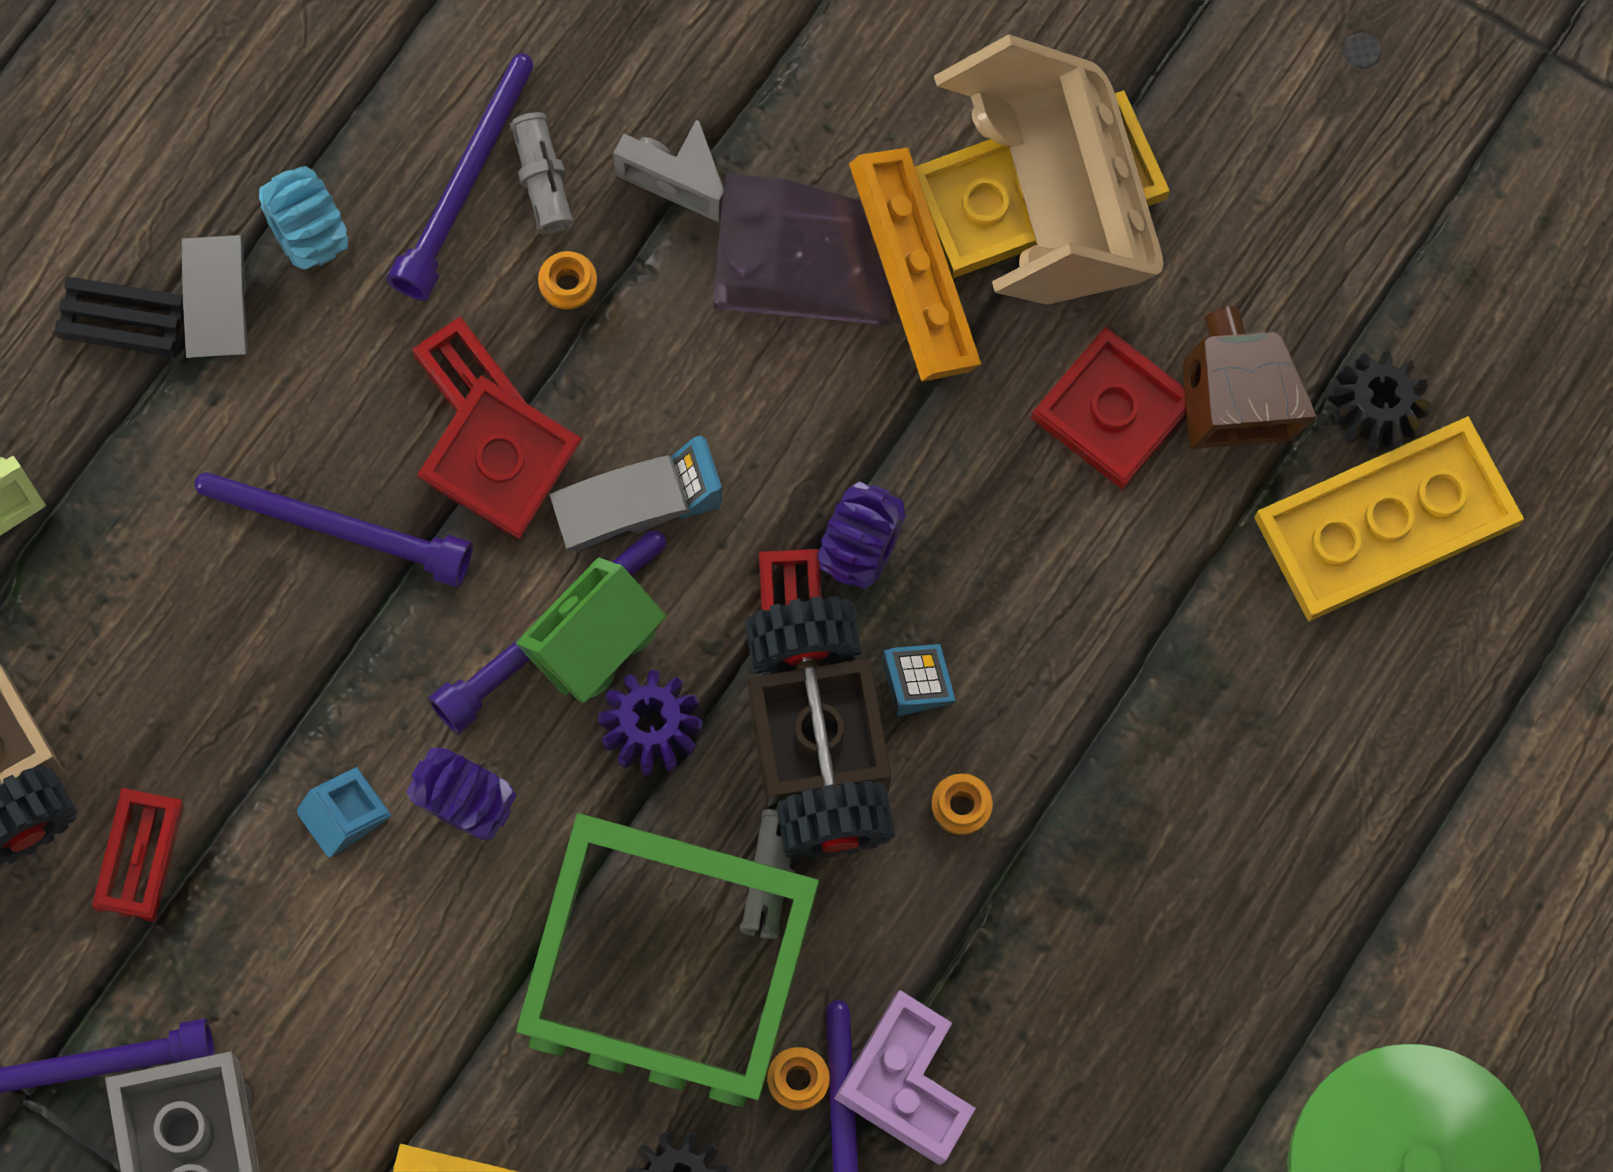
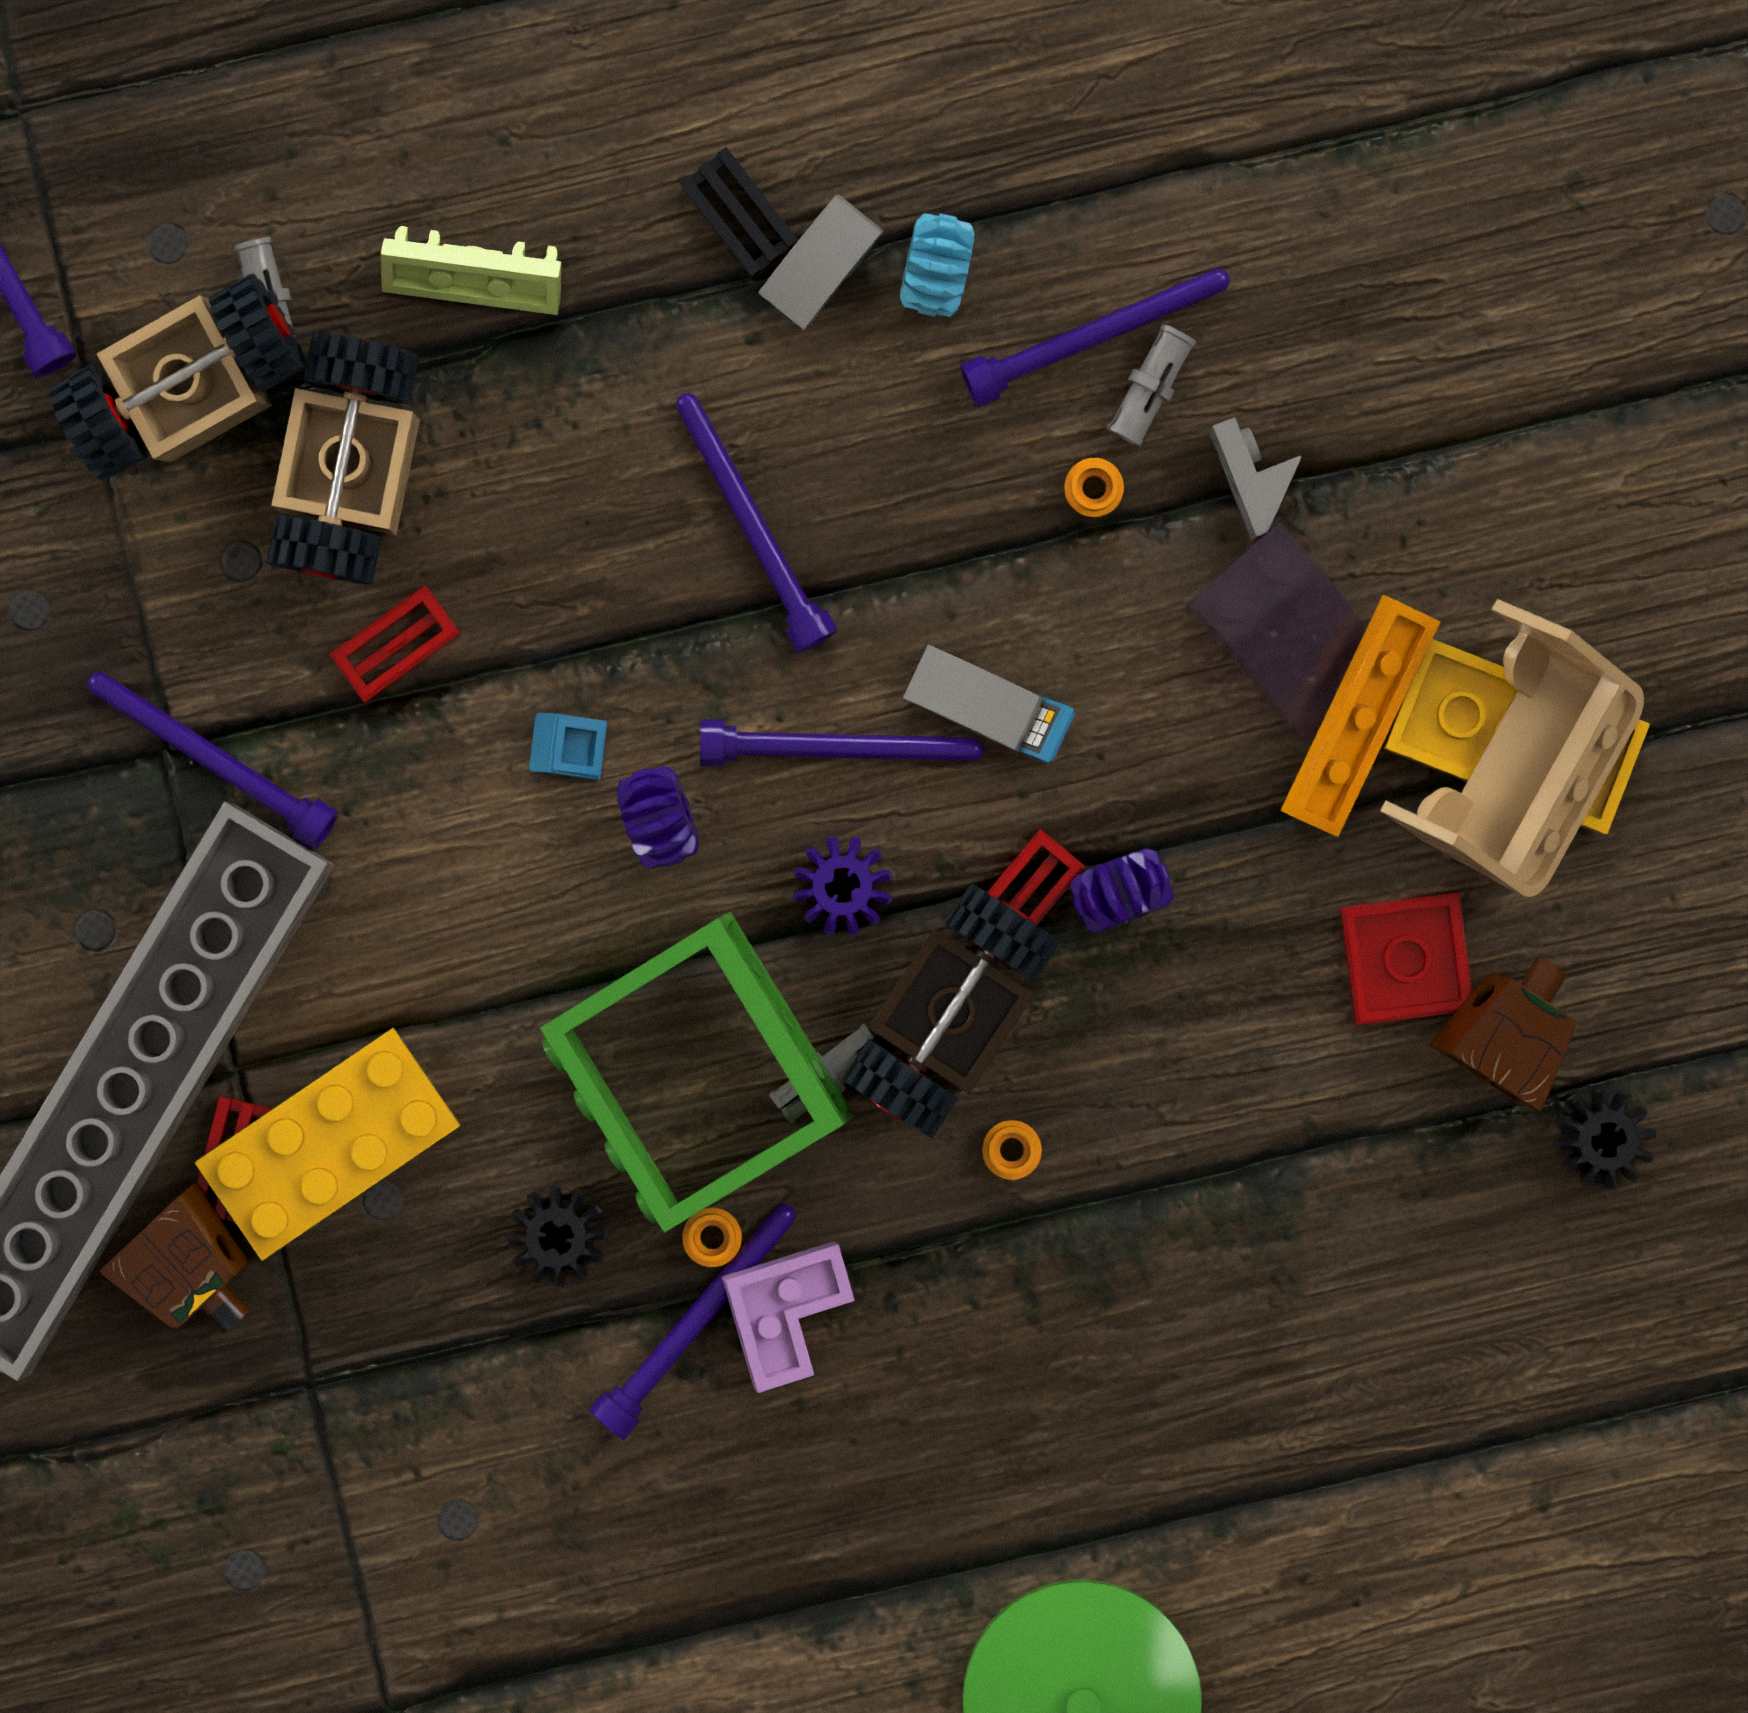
camera: 50 degrees right, 15 degrees up
(440, 341) = (946, 550): red tile -> none
(499, 458) = (916, 583): red tile -> none
(592, 630) = (861, 780): bright green brick -> none
(917, 678) = (1068, 1029): slope -> none
(1388, 518) = (1525, 1230): yellow plate -> none

